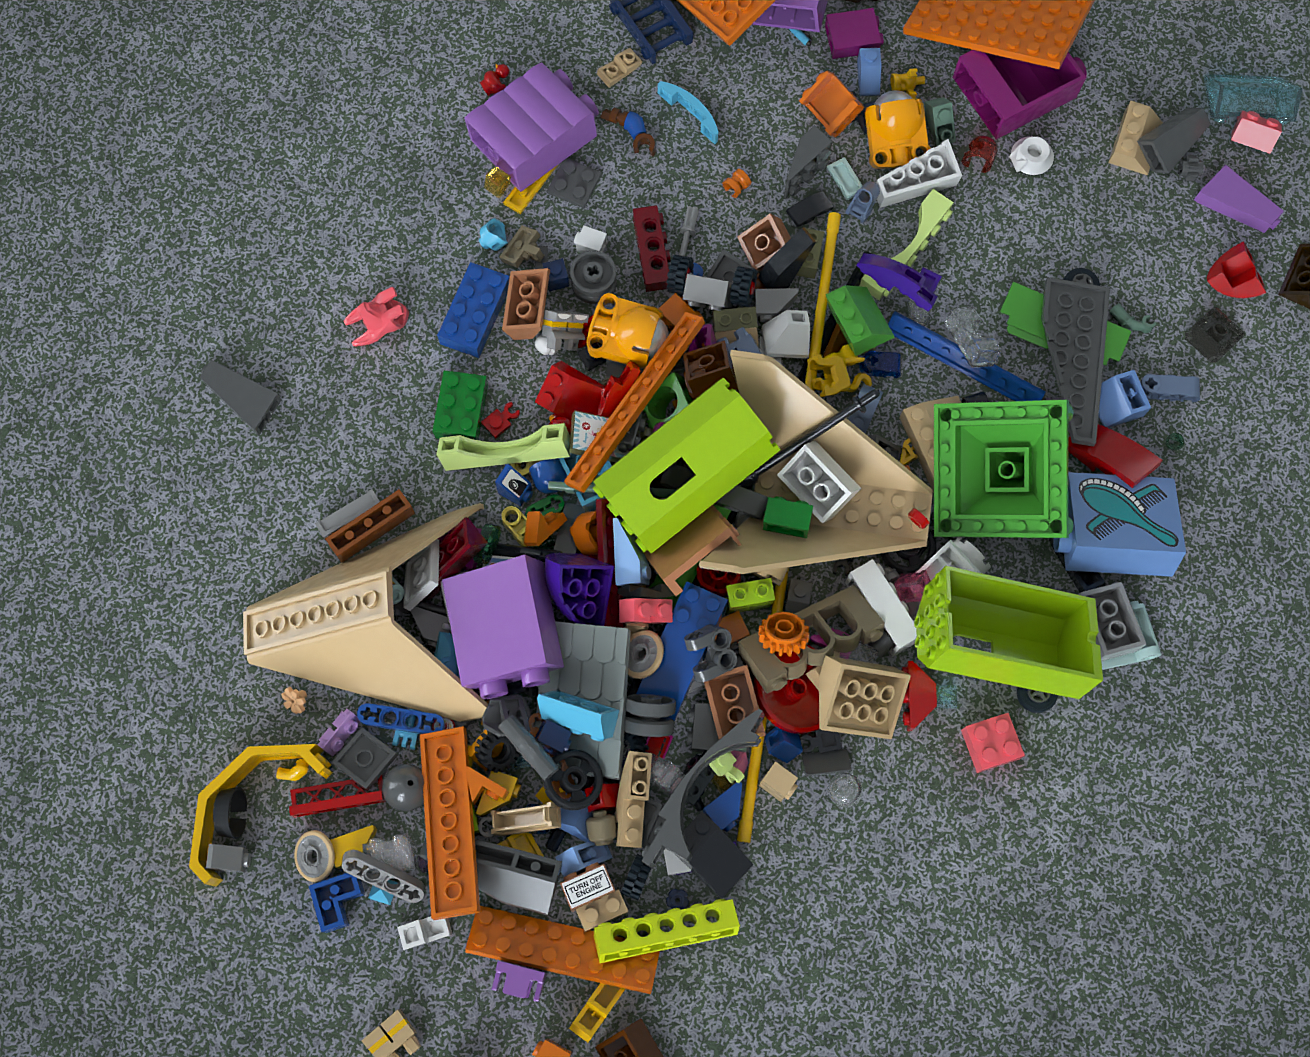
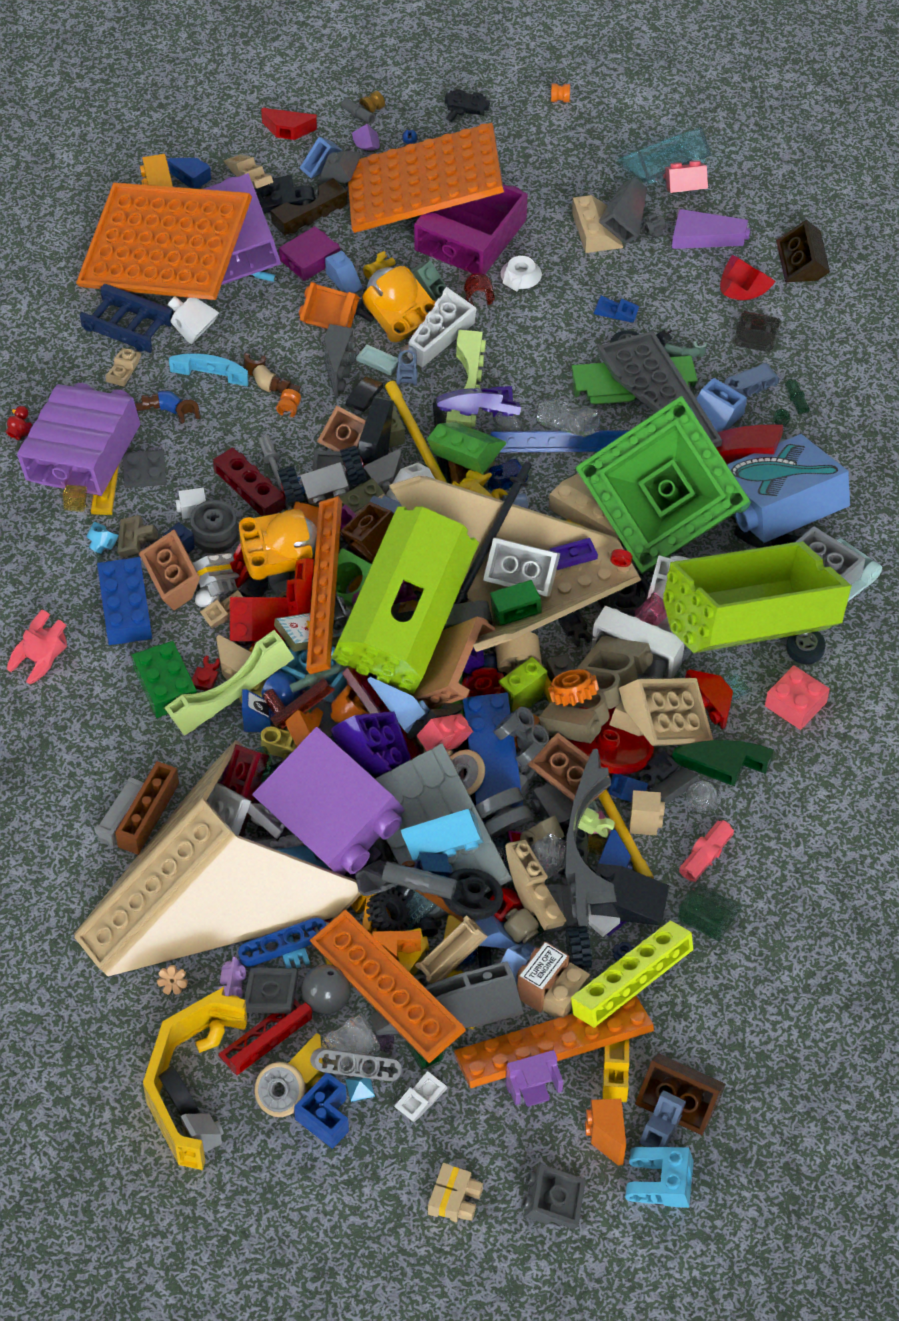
camera: 30 degrees left, 20 degrees down
(527, 418) = (231, 656): none -> tan slope
(528, 777) = (428, 926): none -> black plate
(533, 504) = (302, 703): none -> clear red piece
(544, 361) = (217, 612): none -> tan slope
(677, 750) = (542, 829): none -> dark tan piece
(705, 49) = (192, 317): none -> white torso
(732, 146) = (264, 378): none -> piece
(776, 905) = (708, 912): none -> clear green slope
(811, 846) = (706, 850): none -> coral piece
(878, 489) = (575, 553): none -> dark purple hinge
(886, 765) = (723, 758): none -> dark green slope
(1099, 243) = (622, 311): none -> blue slope
(1119, 295) = (664, 337): none -> black plate
(1205, 426) = (797, 396): none -> clear green axle

